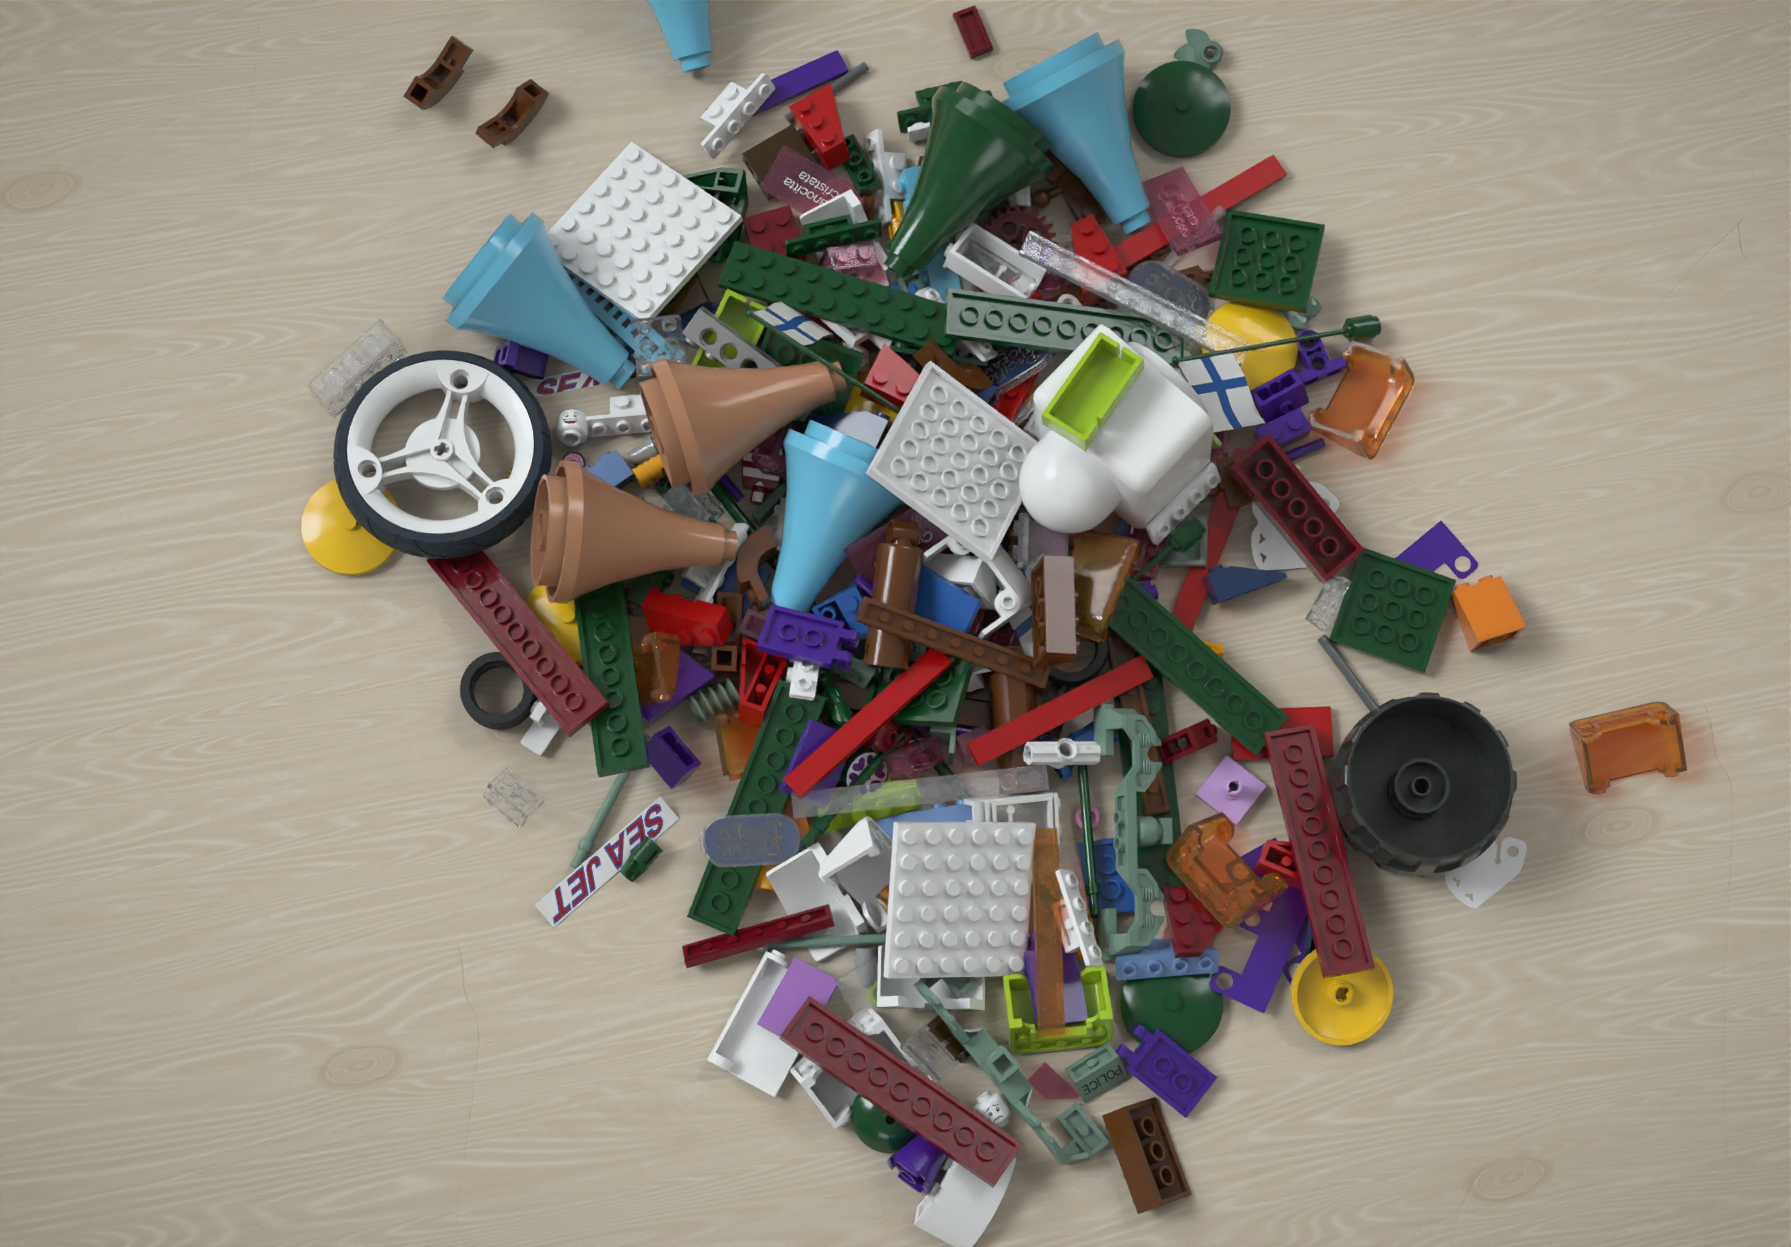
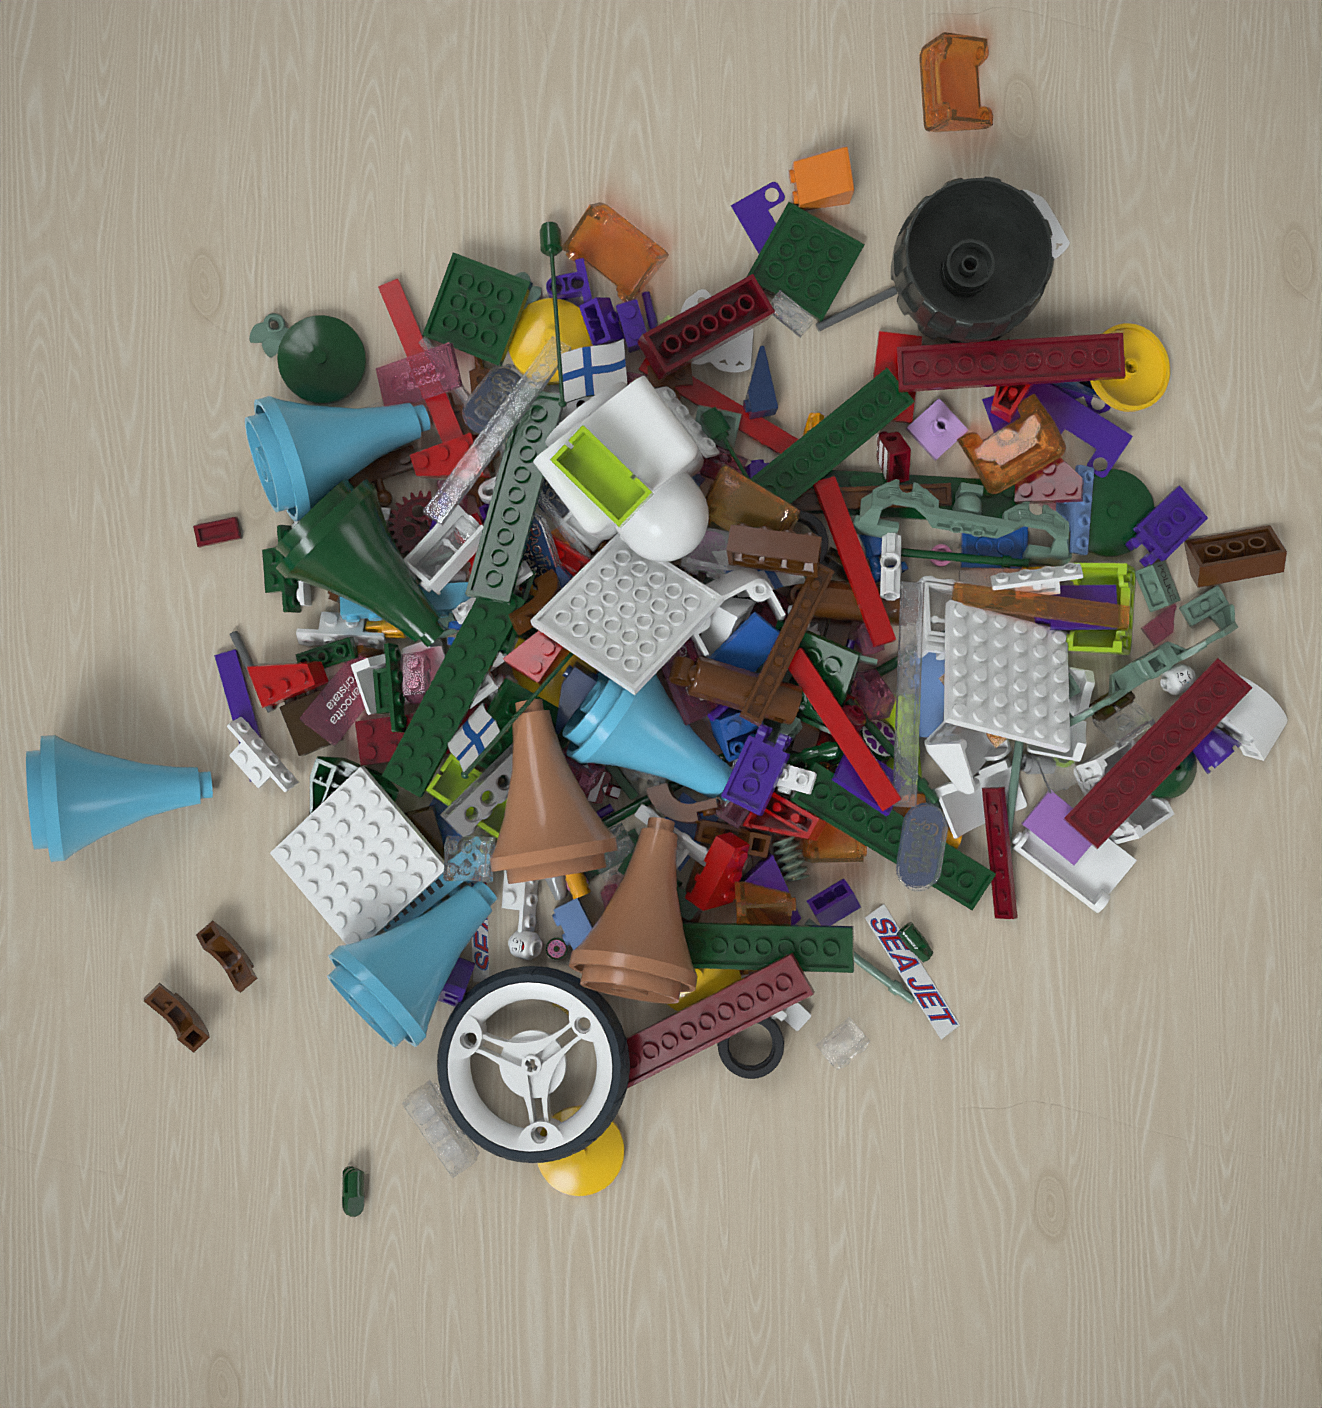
camera: 80 degrees left, 10 degrees up
(273, 289) = (353, 1191): none -> dark green arm

